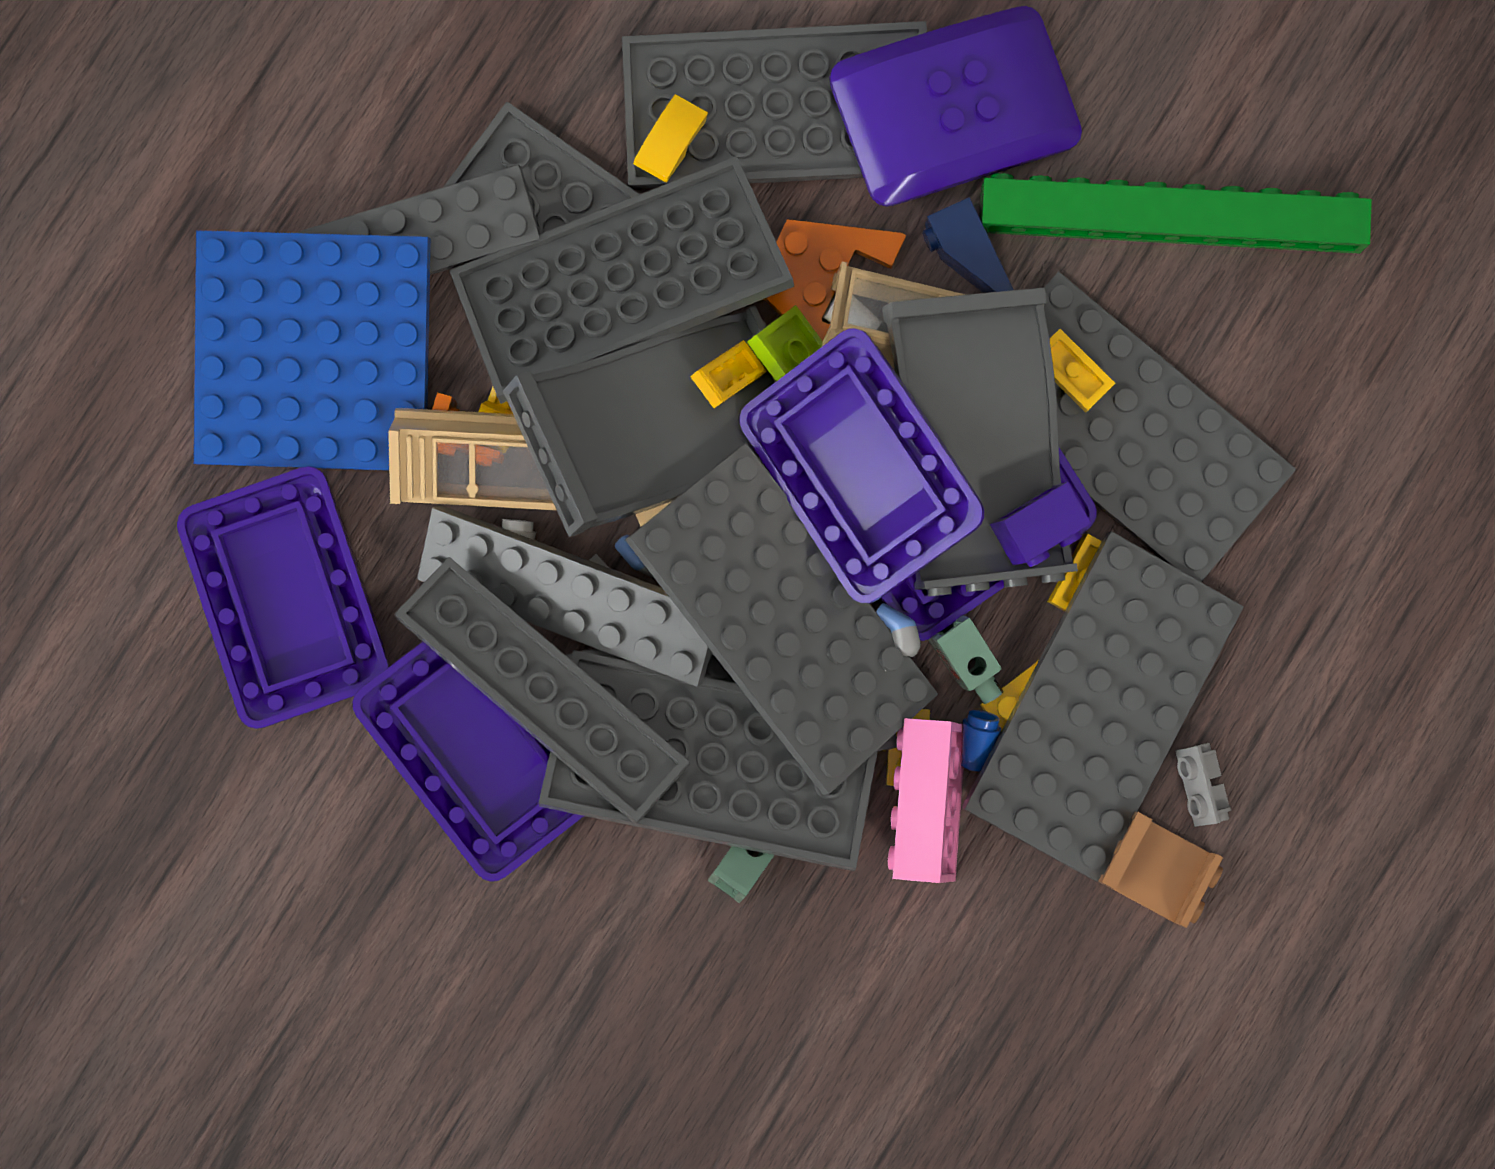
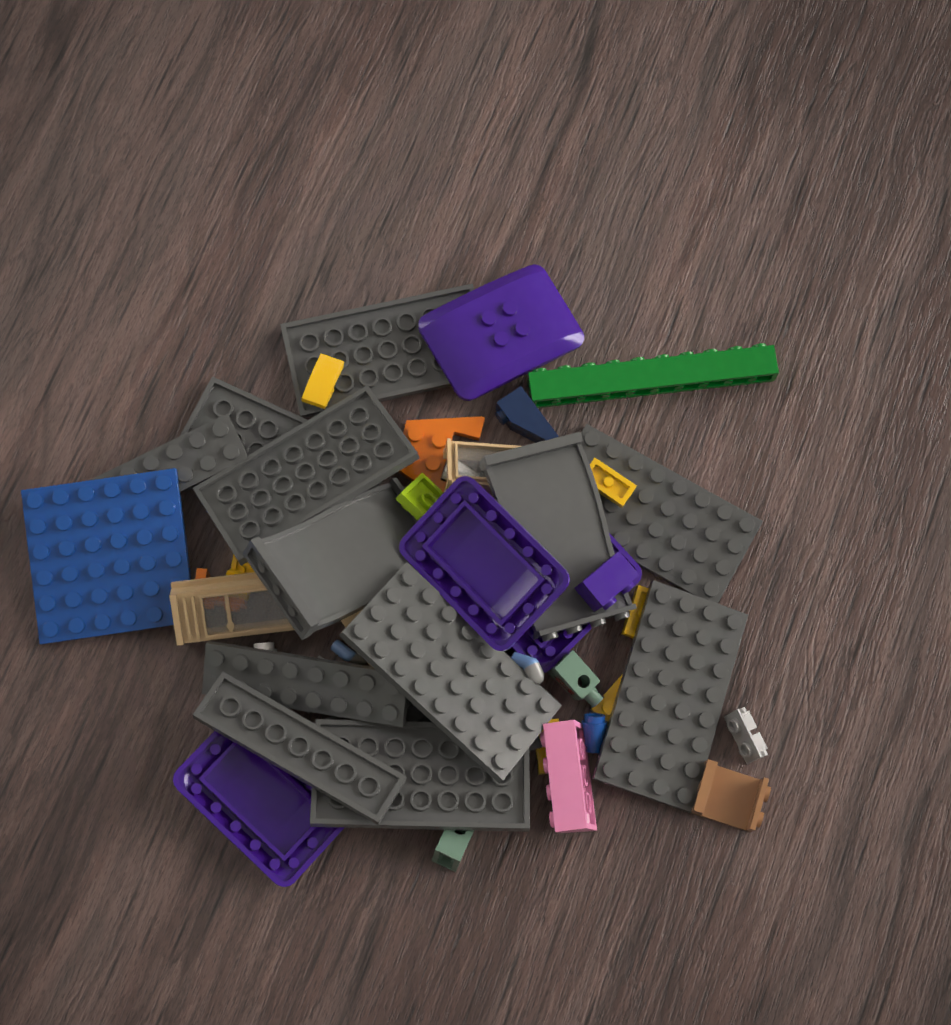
camera: 20 degrees left, 10 degrees down
(282, 596) = (113, 721): dark purple wedge -> none
(728, 374) = (387, 520): yellow plate -> none

